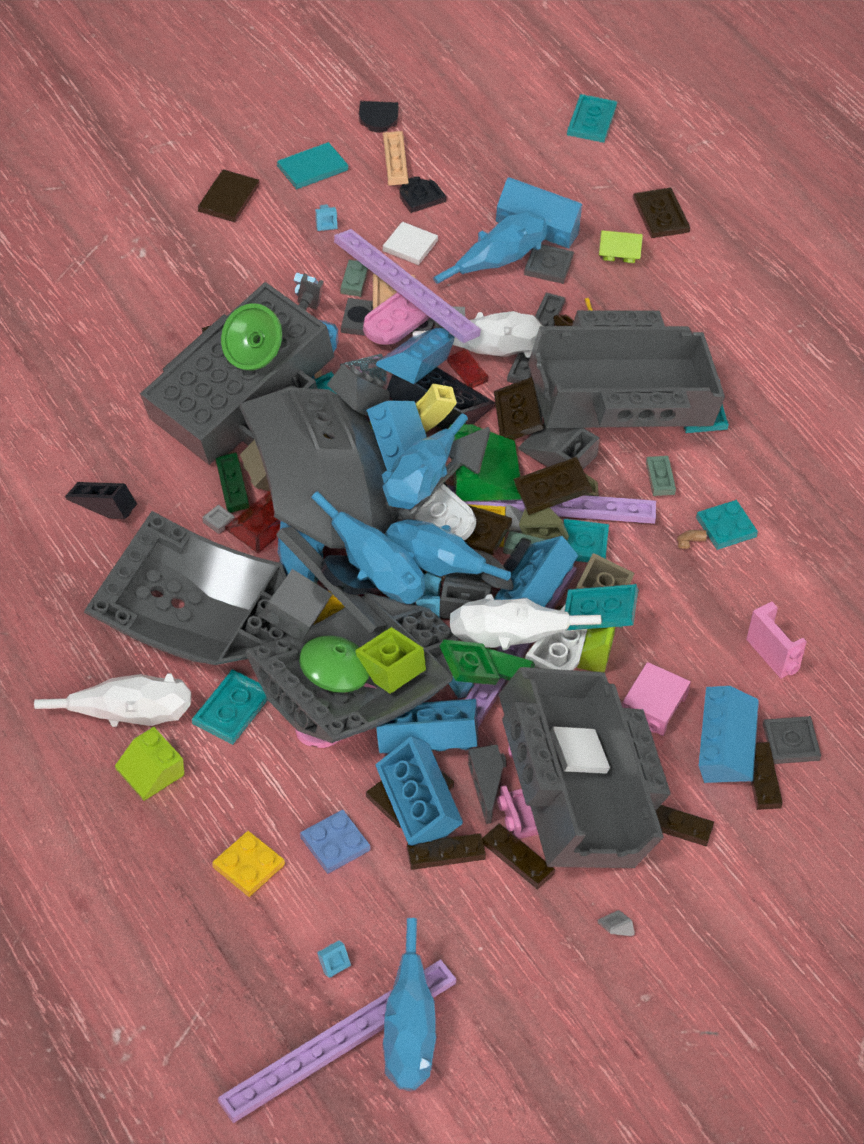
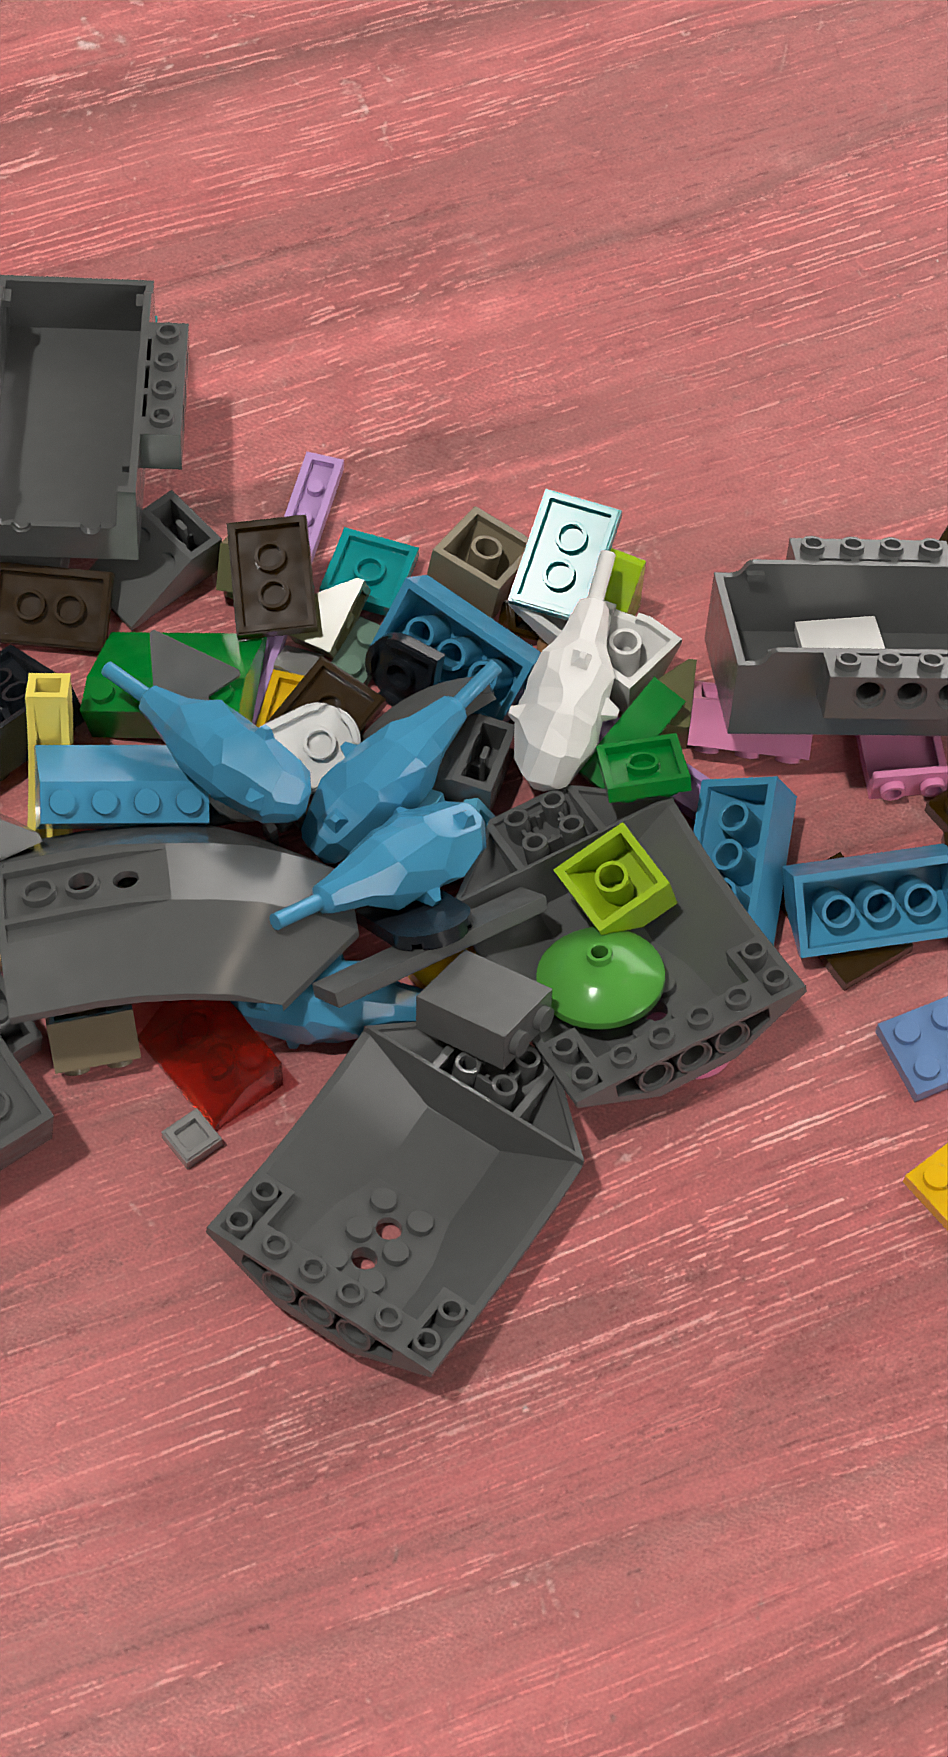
camera: 80 degrees left, 10 degrees up
(106, 499) = (104, 1337): black slope -> none
(128, 699) = (622, 1332): white piece -> none
(150, 764) = (753, 1315): lime slope -> none
(231, 707) = (637, 1171): teal tile -> none
(232, 483) = (115, 1099): dark green plate -> none
(486, 771) = (842, 801): dark grey slope -> none
(658, 694) = (714, 533): bright pink panel -> none
(660, 475) = (246, 435): sand green plate -> none
(690, 535) = (386, 428): medium nougat arm -> none
(726, 524) = (366, 372): teal plate -> none
(728, 735) = (804, 461): dark azure slope -> none
(765, 781) = (869, 440): dark brown plate -> none
(773, 644) = (638, 359): bright pink panel -> none
(792, 739) = (807, 389): dark grey tile -> none

